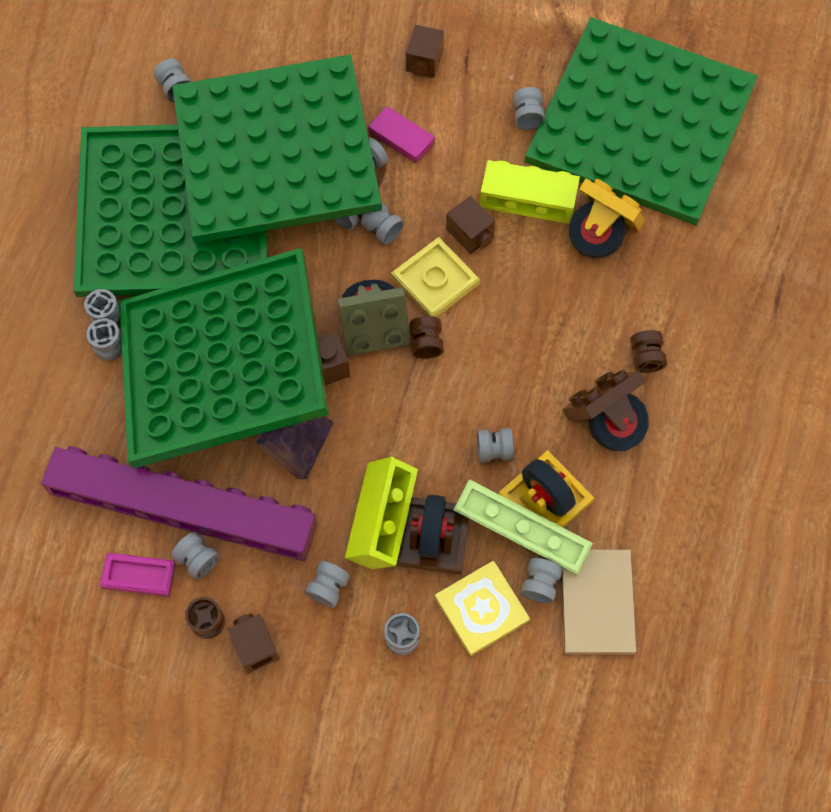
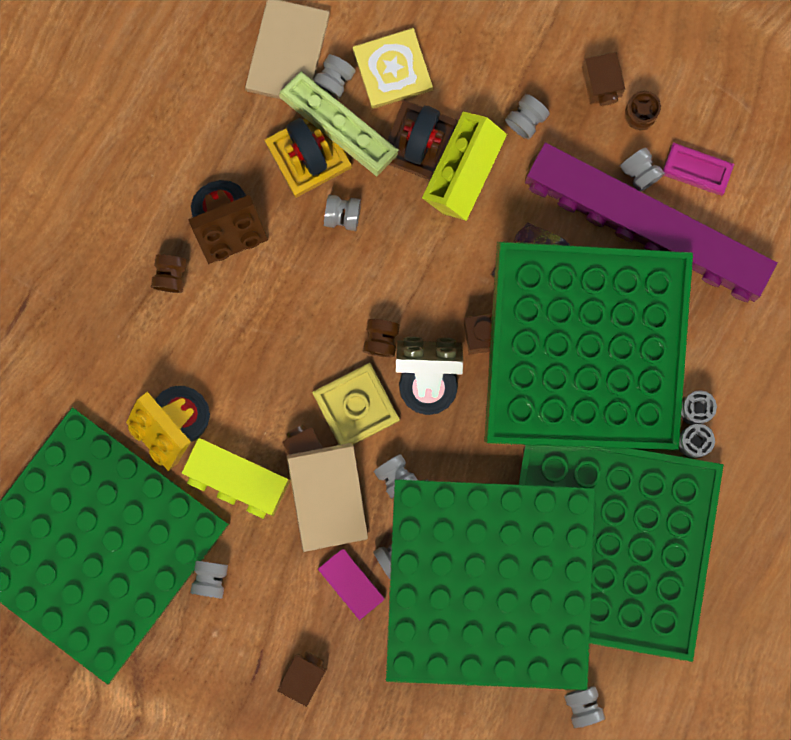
camera: 165 degrees left, 15 degrees up
(400, 628) = (472, 51): light grey wheel -> none
(441, 187) = (327, 497): none -> tan tile

